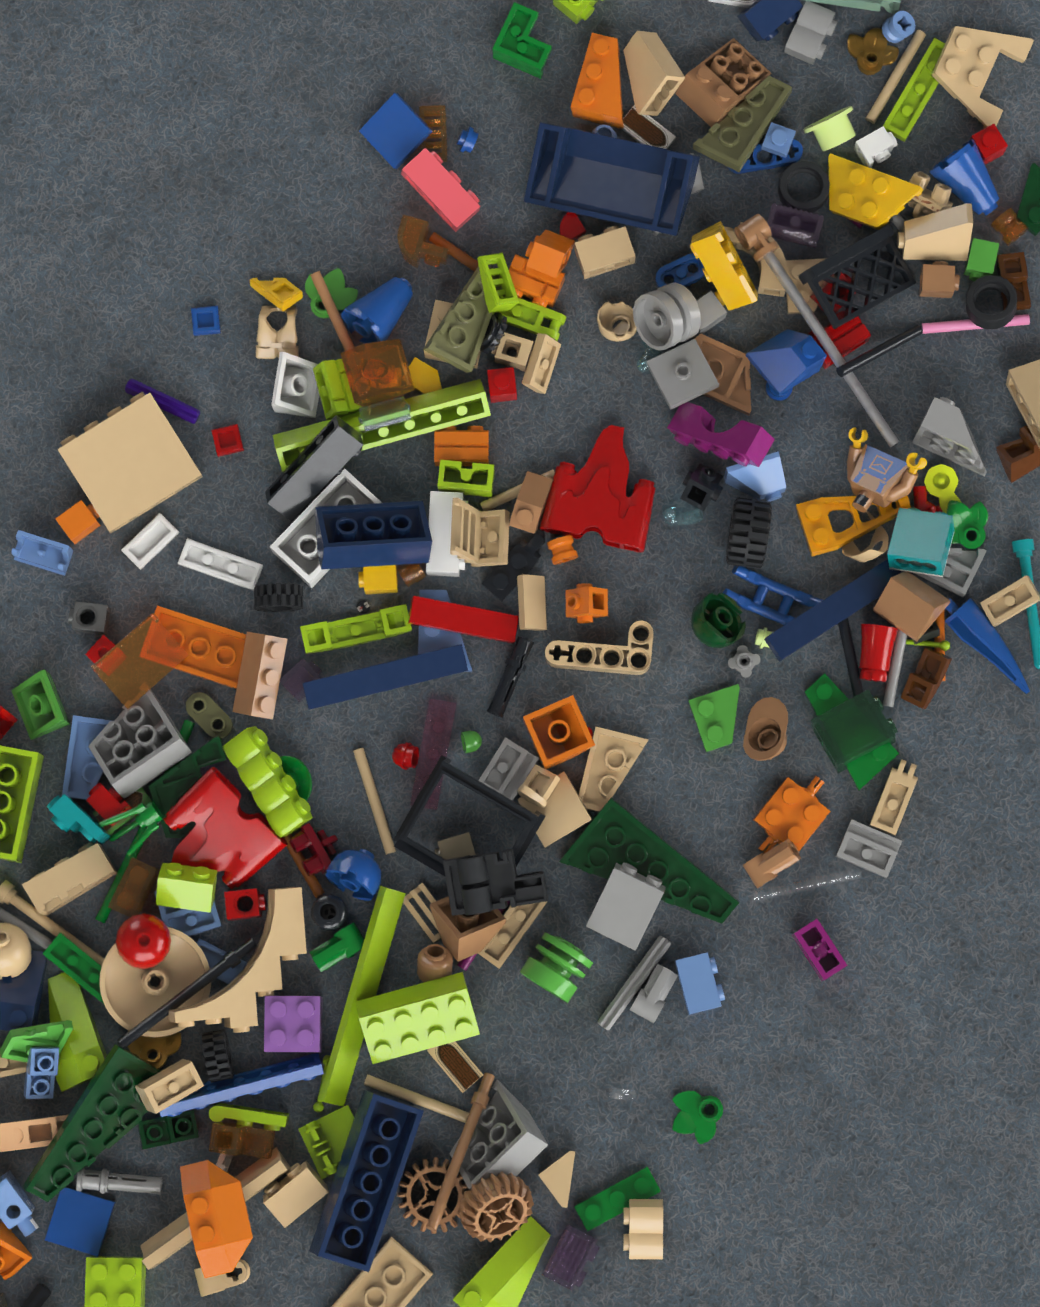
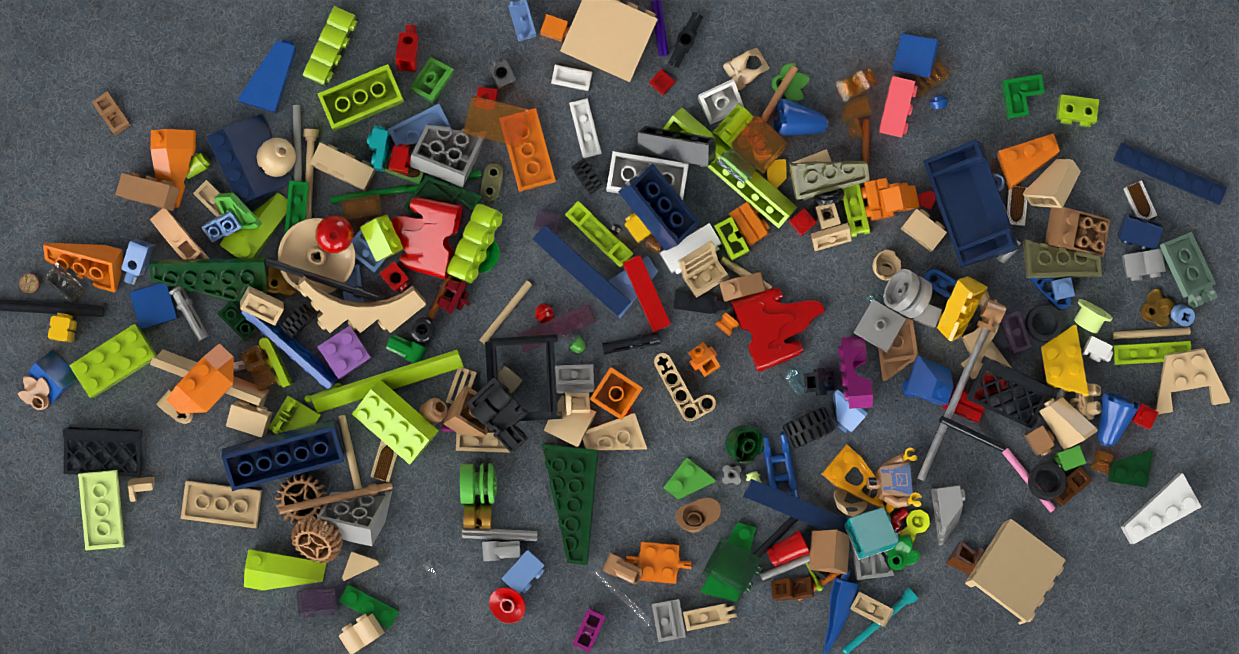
camera: 55 degrees right, 5 degrees up
(147, 816) = (407, 185): green plant -> none
(190, 368) = (680, 48): none -> black pin
(205, 320) = (725, 20): blue tile -> none
(260, 675) = (533, 196): medium nougat brick -> none
(279, 292) = (771, 51): yellow tile -> none
(356, 872) = (456, 330): blue cylinder -> none
(383, 218) = (856, 84): none -> clear orange brick
(492, 295) = (856, 174): lime slope -> none
(532, 602) = (683, 326): tan tile -> none
(595, 994) = (477, 516): none -> pearl gold wheel
(626, 905) = (540, 500): light grey brick -> none
(692, 1115) = (443, 620): green plate -> none
(727, 1039) = (502, 610): none -> red dish

